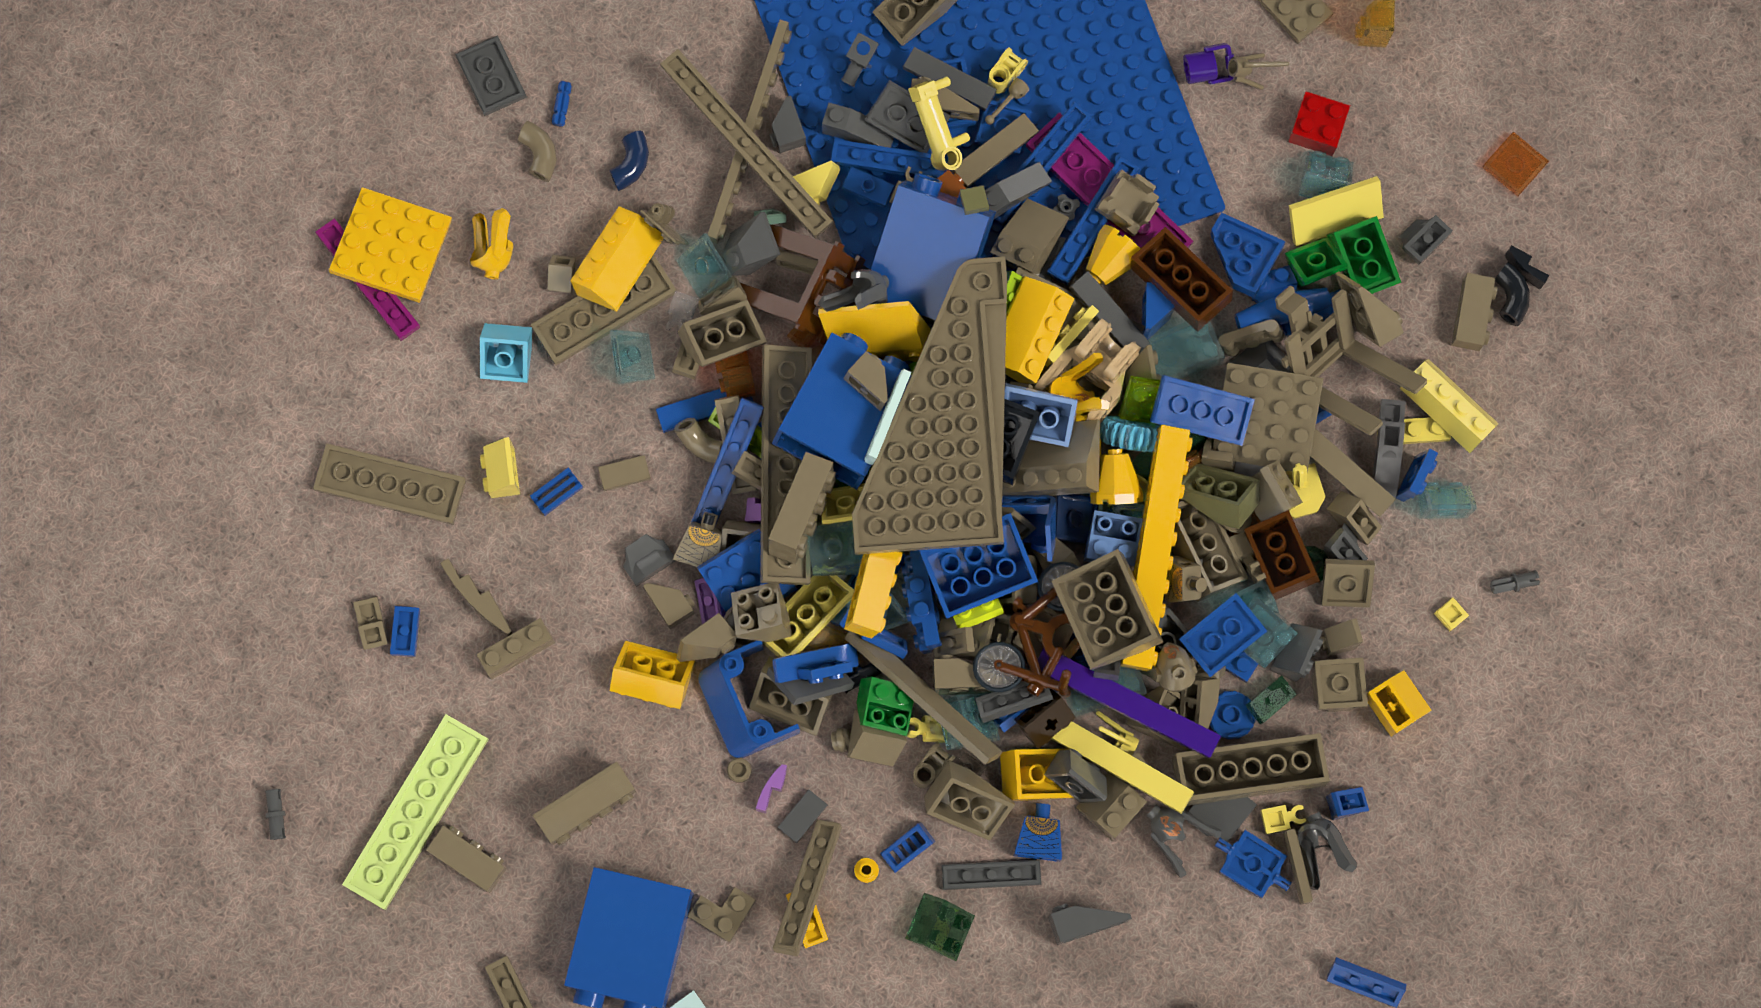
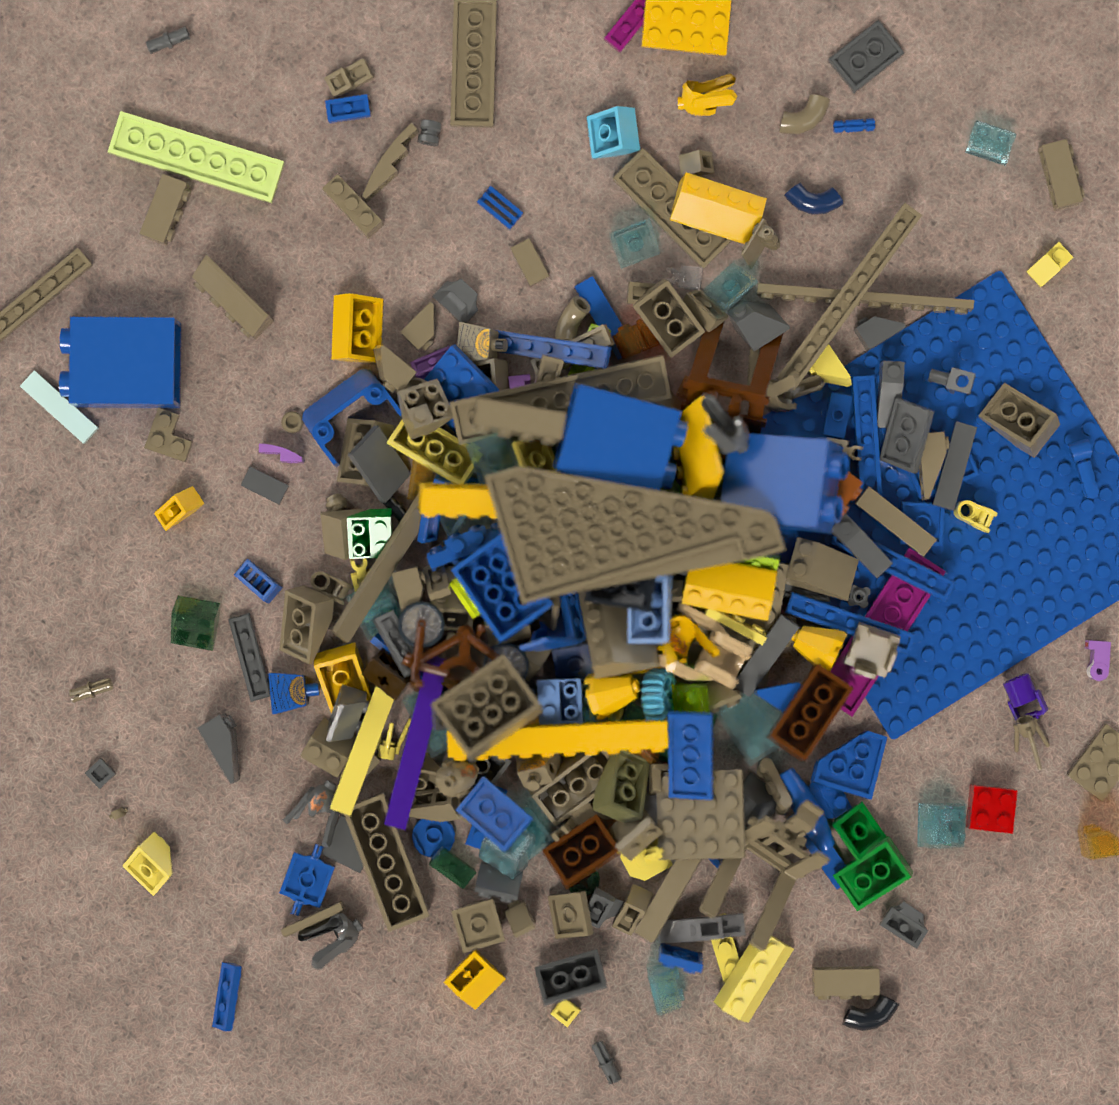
camera: 80 degrees right, 10 degrees up
(455, 548) = (429, 133): none -> dark grey wheel
(500, 468) = (506, 154): light yellow slope -> none
(773, 216) = (791, 336): sand green tile -> none
(807, 888) = (199, 502): dark tan tile -> none
(816, 664) = (390, 467): blue bracket -> none
(829, 231) = (778, 388): none -> dark tan piece
(866, 862) = (236, 553): yellow plate -> none
(869, 379) = (644, 454): dark tan slope -> none
(887, 417) = (613, 477): light aqua tile -> none
(936, 126) = (902, 461): light yellow piece -> none
(974, 200) = (828, 510): olive tile -> none
(1017, 90) = (958, 529): dark tan hinge -> none
(1278, 819) = (351, 893): light yellow plate -> none
(1335, 210) = (910, 839): light yellow tile -> none
(1347, 803) = (377, 951): blue slope -> none
(1369, 314) = (819, 889): dark tan slope -> none
(1417, 595) = (571, 977): none -> dark grey slope
(1515, 164) = (996, 995): clear orange tile -> none
(1520, 261) = (902, 1016): black slope -> none

